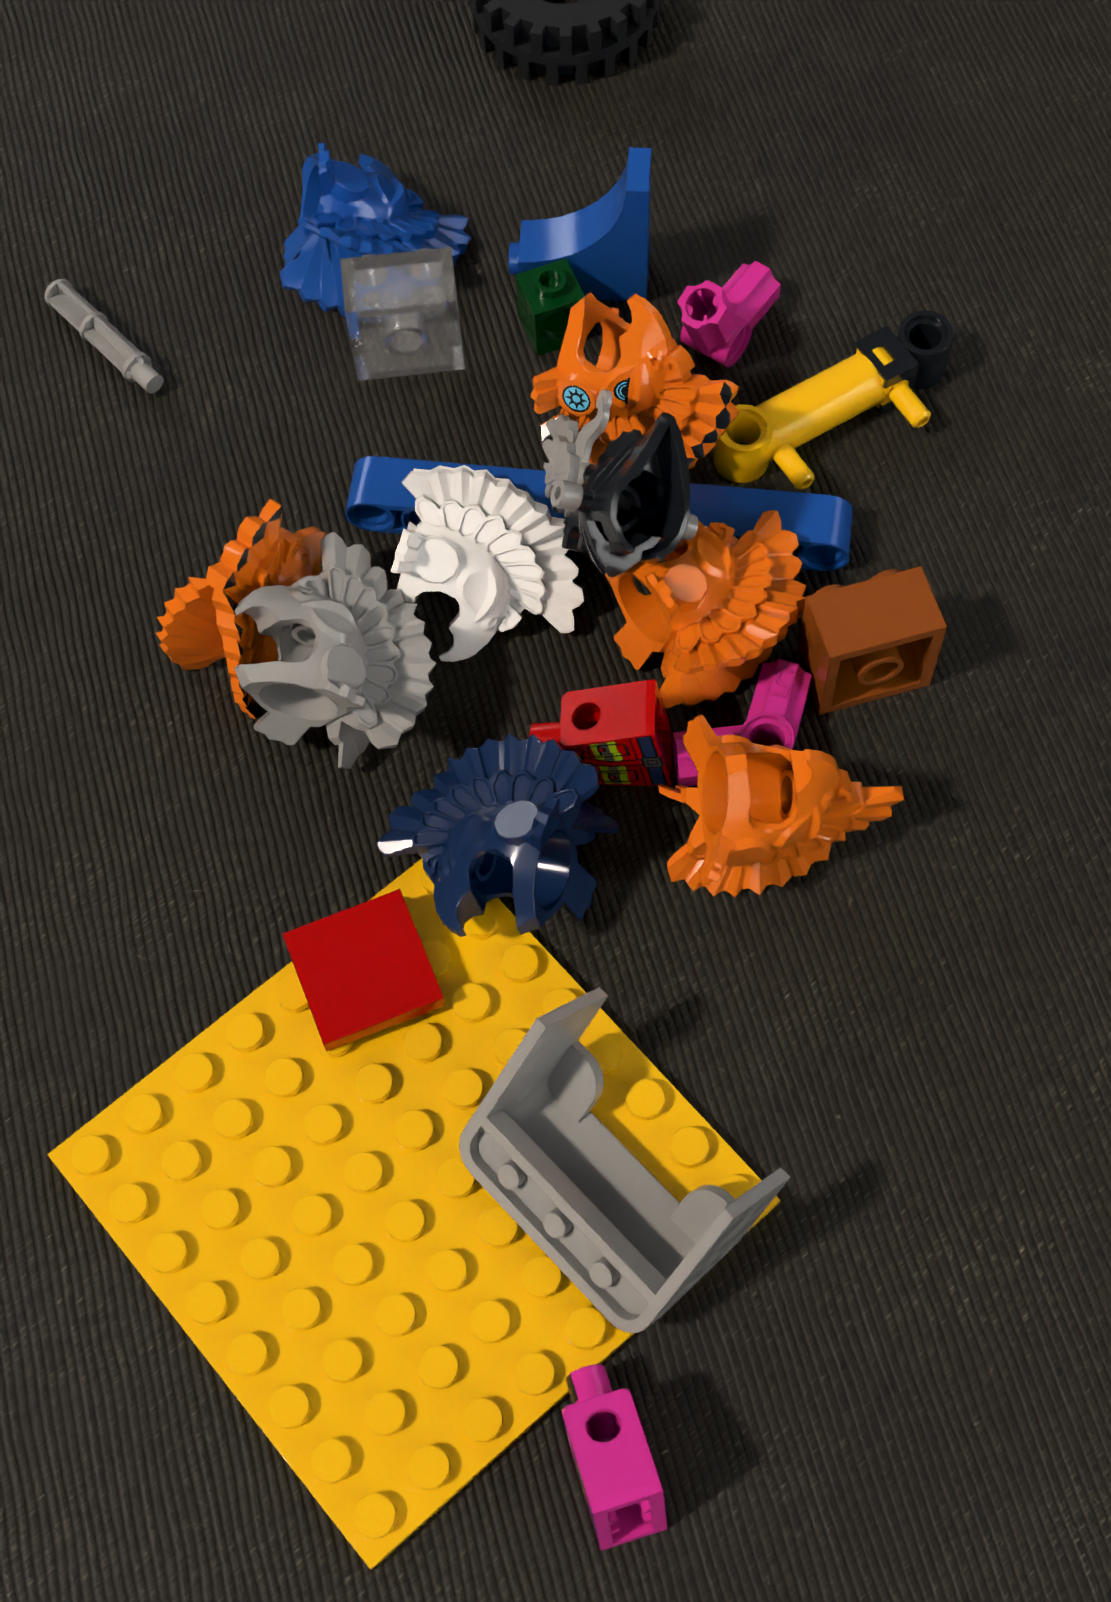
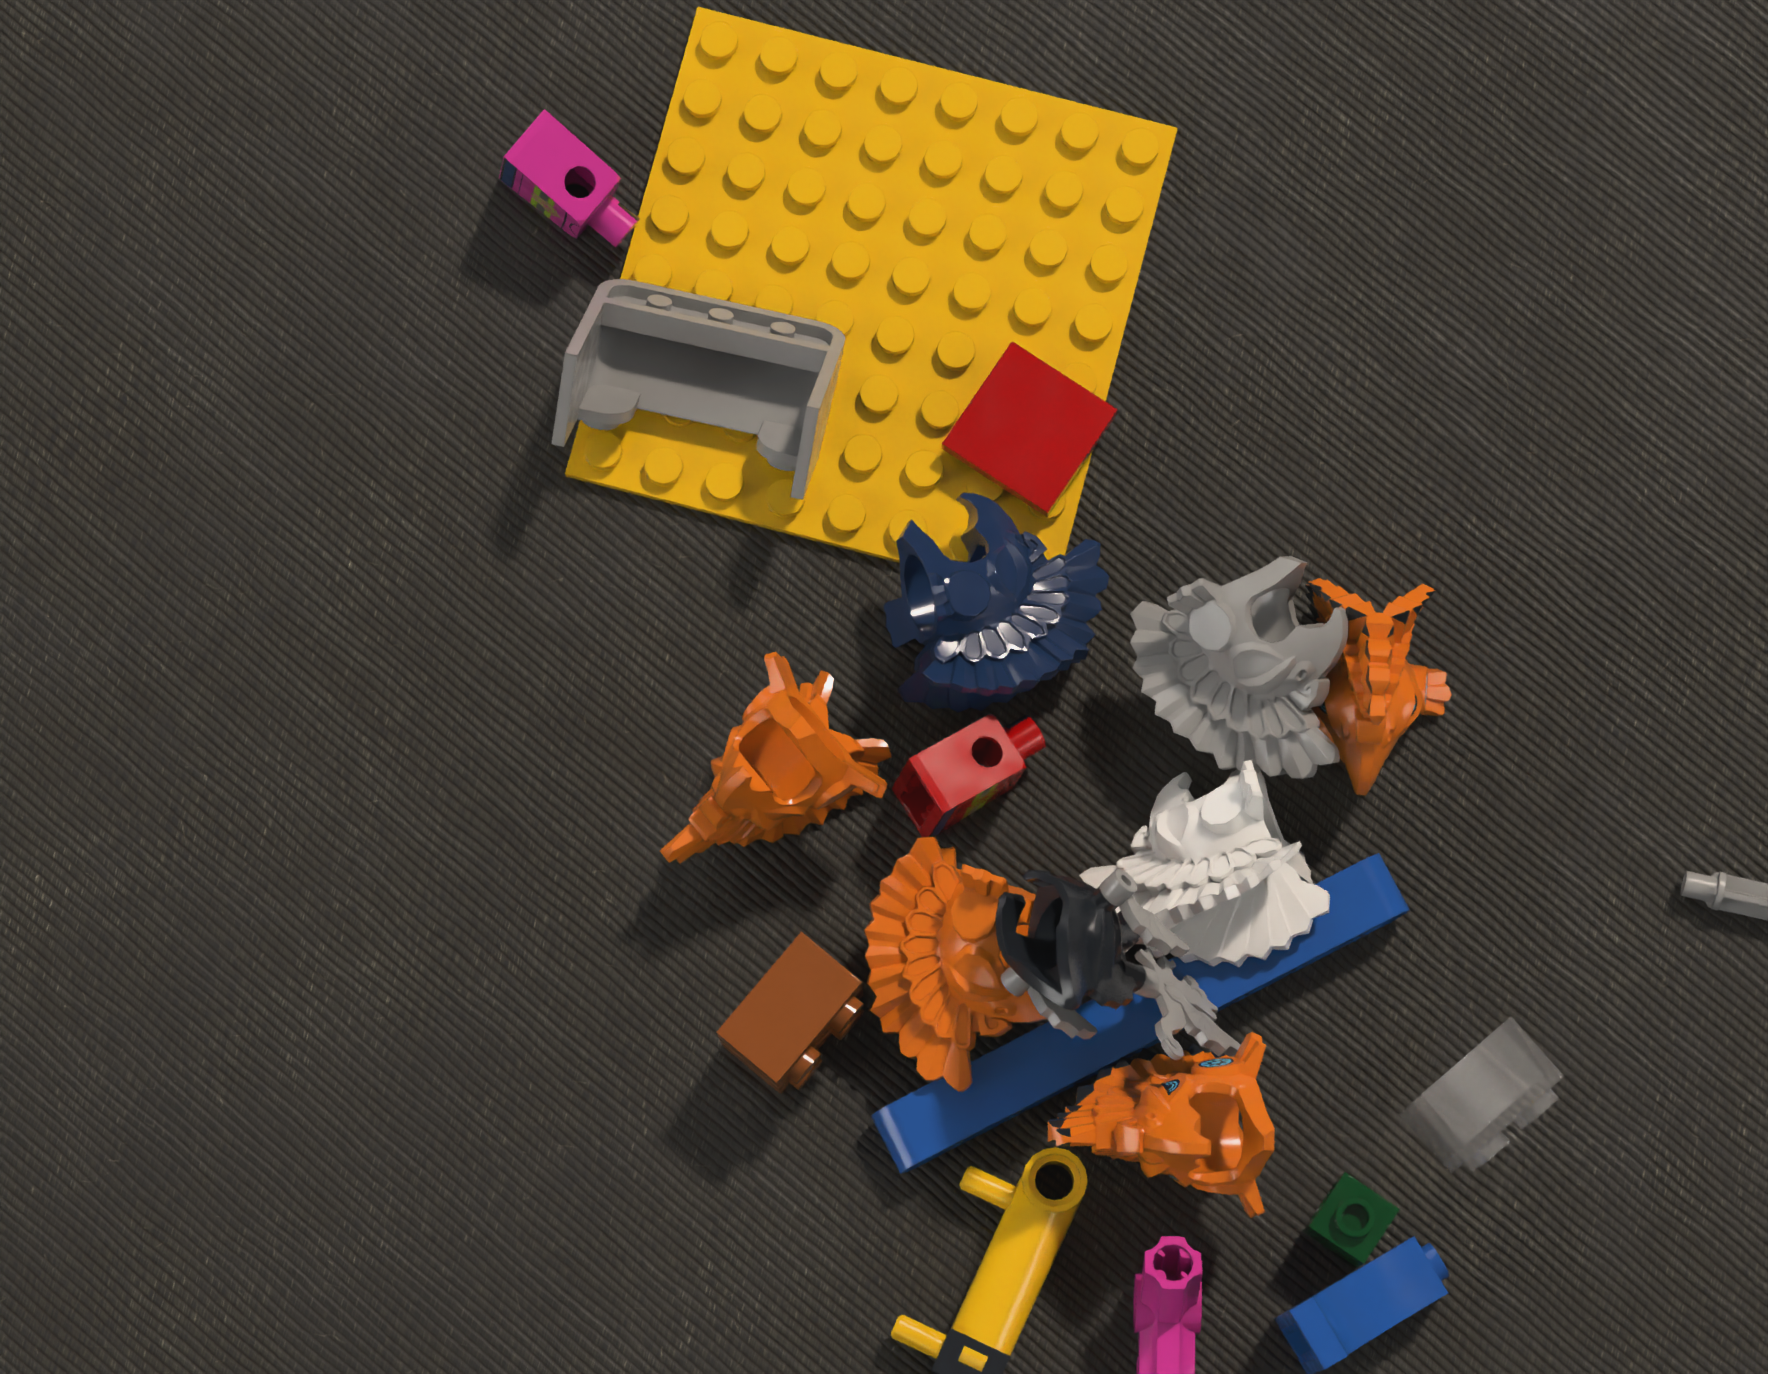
camera: 145 degrees right, 15 degrees up
(356, 215) = (1589, 1177): blue piece -> none
(771, 717) = (838, 899): dark pink piece -> none

